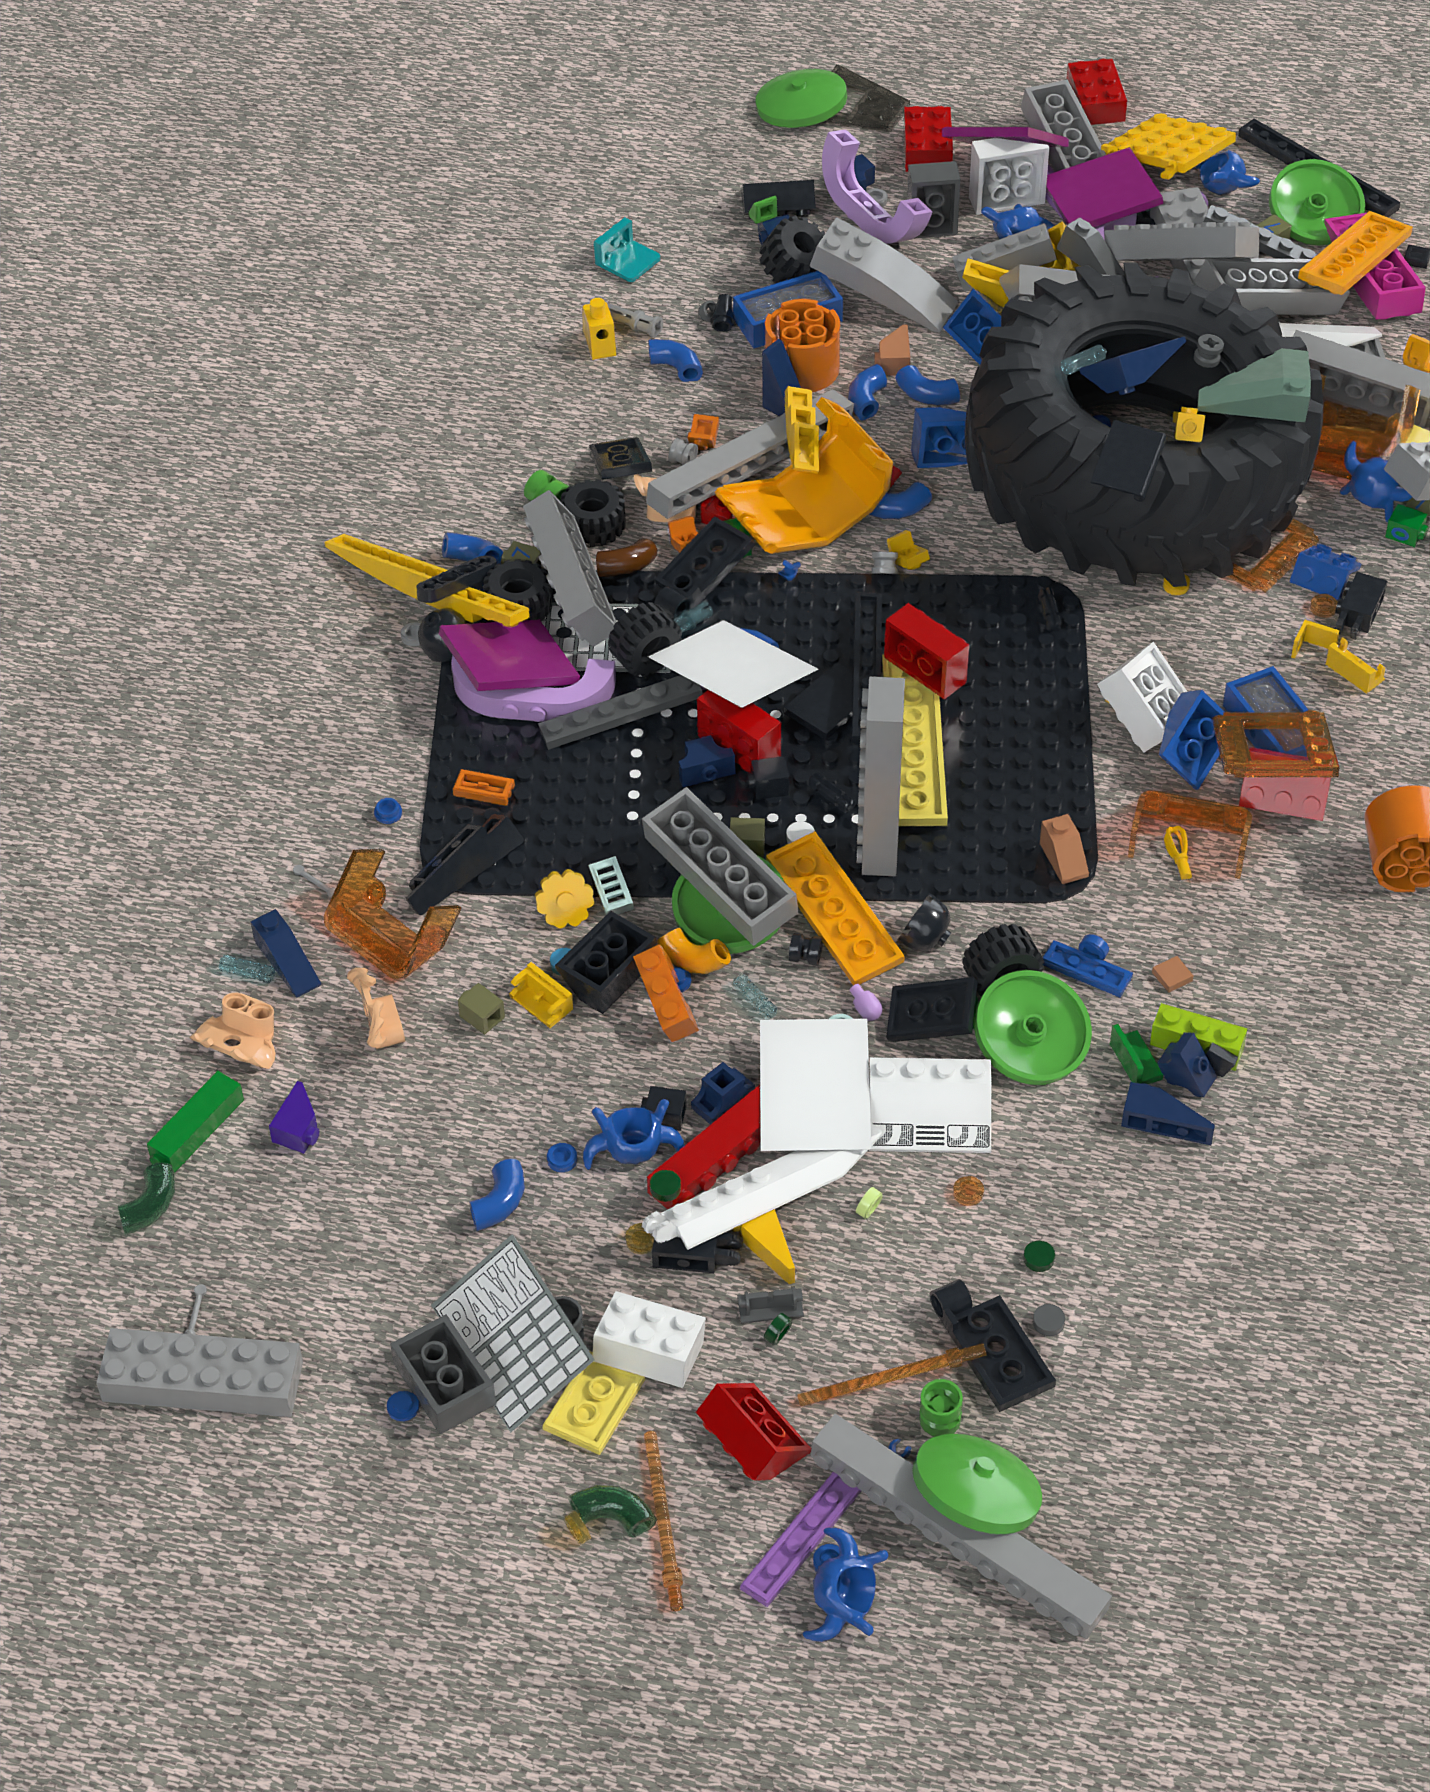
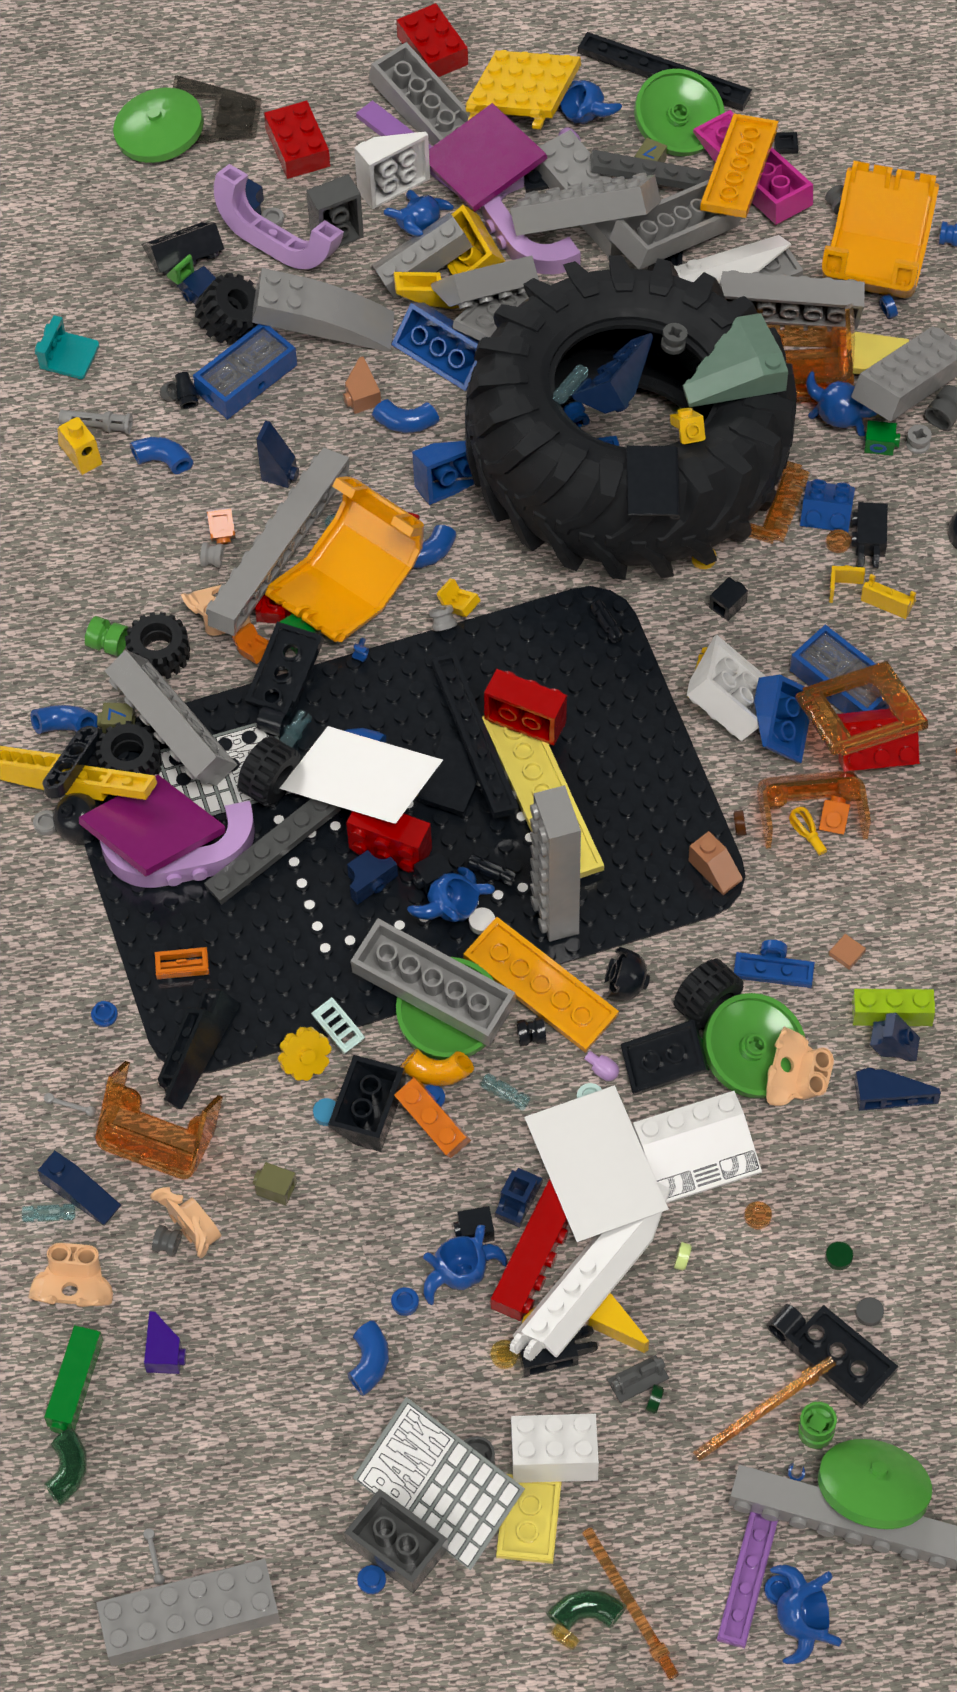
camera: 20 degrees left, 10 degrees up
(348, 1026) = (166, 1240): none -> dark grey wheel
(541, 995) = (322, 1153): yellow hinge -> none
(620, 458) = (159, 580): black tile -> none
(626, 559) = (212, 687): reddish brown cylinder -> none
(665, 1185) = (511, 1303): dark green tile -> none
(750, 832) = (440, 937): olive brick -> none
(752, 1430) = (671, 1498): red slope -> none
(777, 801) = (452, 897): none -> blue piece
(801, 430) = (318, 506): yellow slope -> none
(810, 340) = (284, 400): orange brick -> none
(862, 391) = (348, 437): blue cylinder -> none
(1023, 134) = (377, 127): magenta tile -> none
(1047, 1075) = (807, 1069): none -> light nougat piece
(1087, 247) = (504, 233): dark grey slope -> none
(1108, 824) = (739, 823): none -> reddish brown tile
(1135, 1056) = (847, 1042): green panel -> none
(1185, 623) = (728, 598): none -> black brick
(1213, 845) = (834, 815): none -> orange bracket
(1220, 1059) = (920, 1023): black tile -> none

